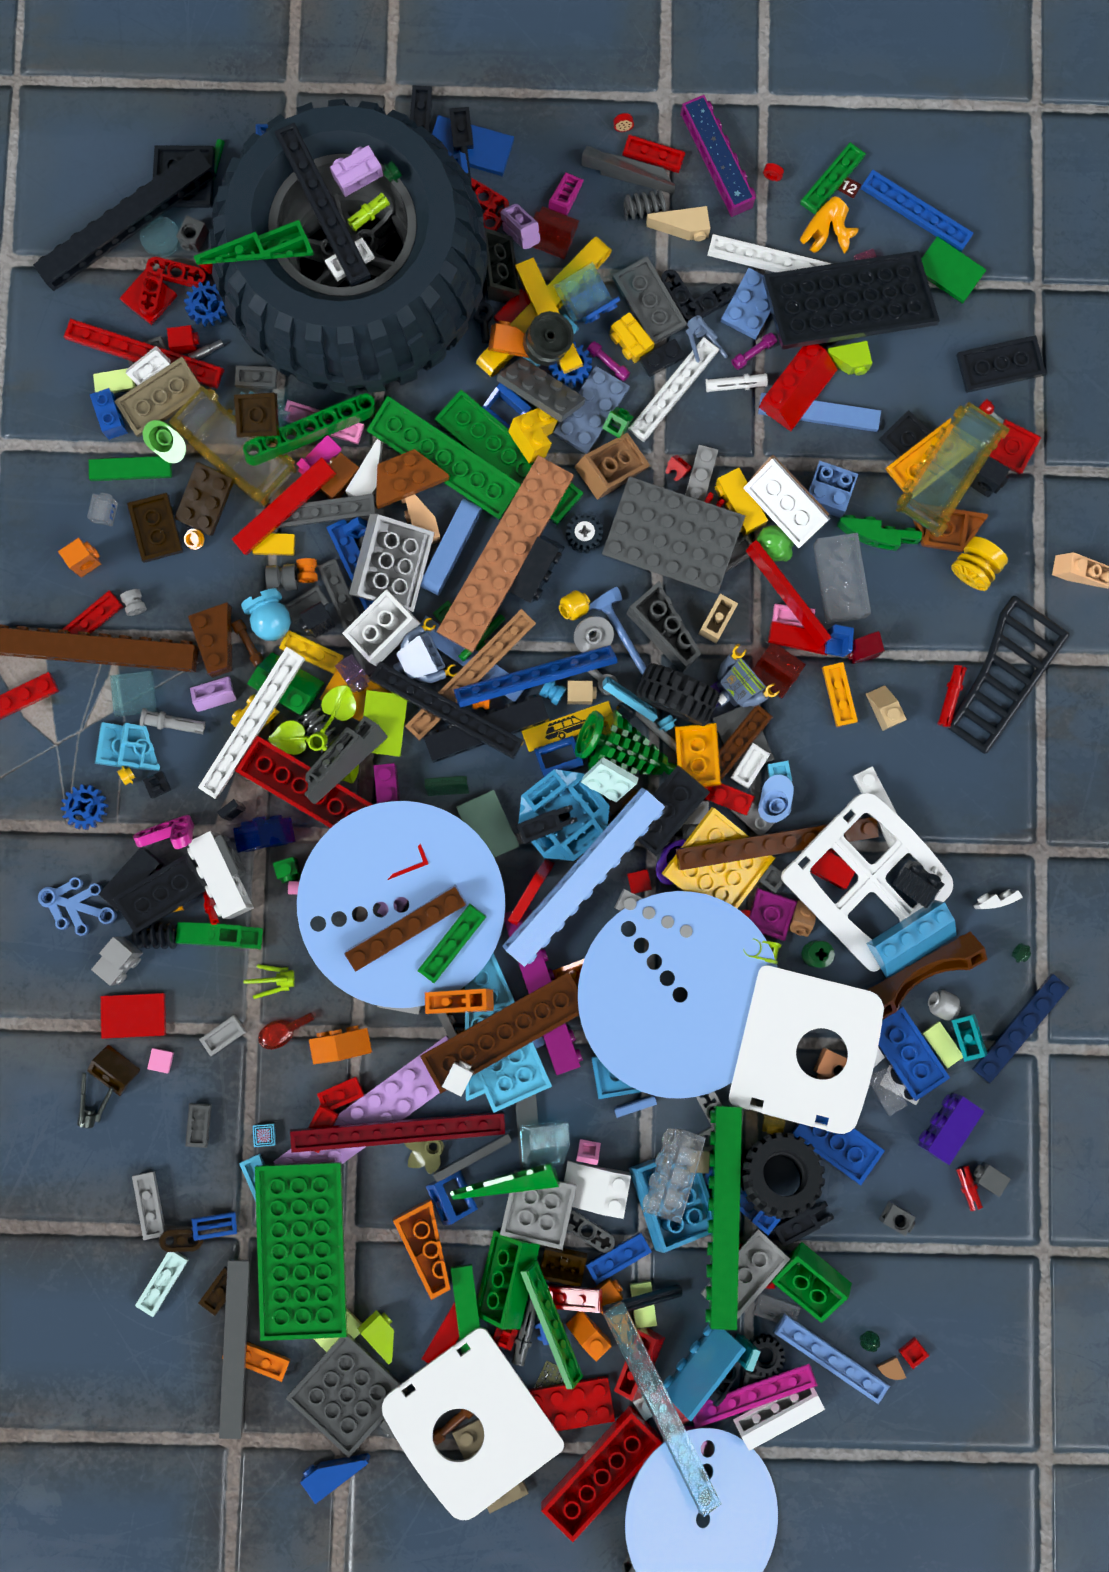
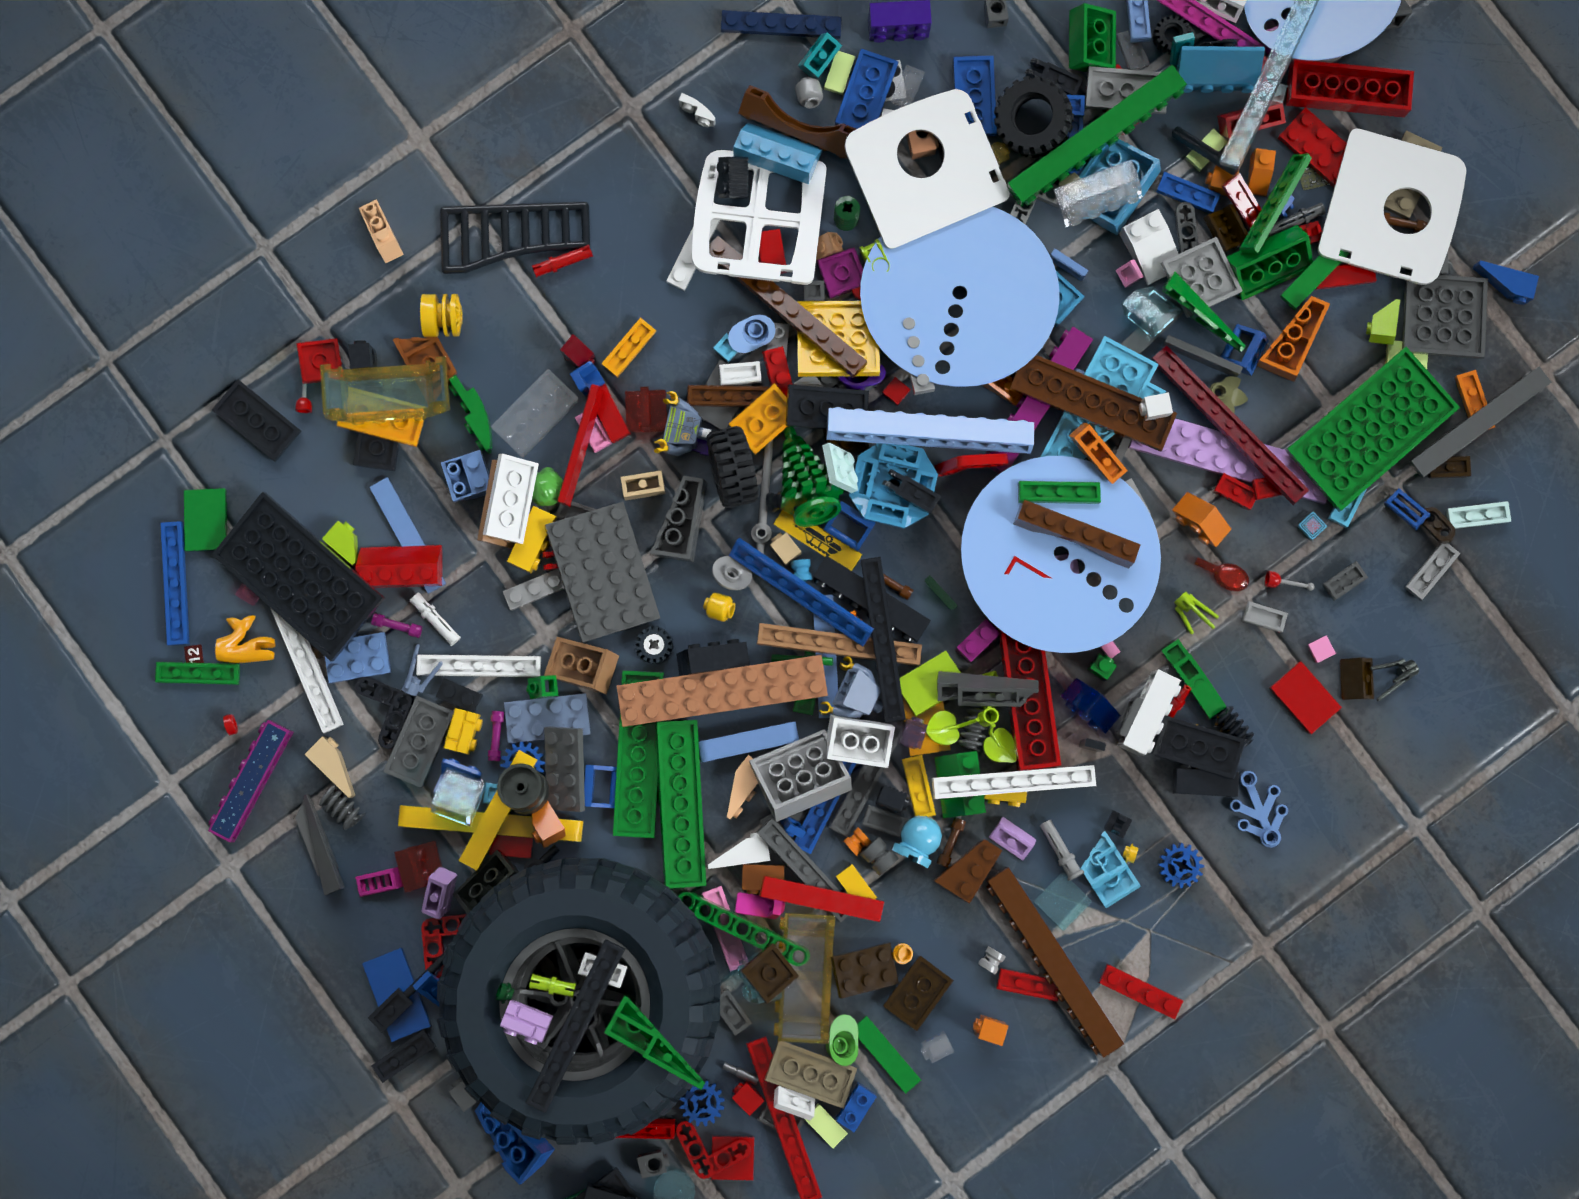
camera: 130 degrees left, 0 degrees up
(116, 960) = (1275, 741): light grey brick -> none
(179, 830) = (1137, 778): dark pink beam -> none
(246, 1067) = (1273, 579): none -> hinge
(405, 477) = (722, 820): dark orange wing -> none
(472, 761) = (905, 591): none -> reddish brown bar
(489, 822) = (943, 541): sand green tile -> none
(531, 433) = (610, 748): yellow brick -> none
(605, 603) = (698, 585): medium blue piece -> none
(623, 122) = (280, 881): tile -> none
(630, 699) = (761, 507): medium azure tile -> none
(653, 153) = (287, 836): red tile -> none
(666, 723) = (758, 463): medium azure plate -> none
(680, 465) = (540, 611): red tile -> none
(886, 707) = (611, 304): tan slope -> none
(1021, 953) = (723, 64): clear green plate -> none

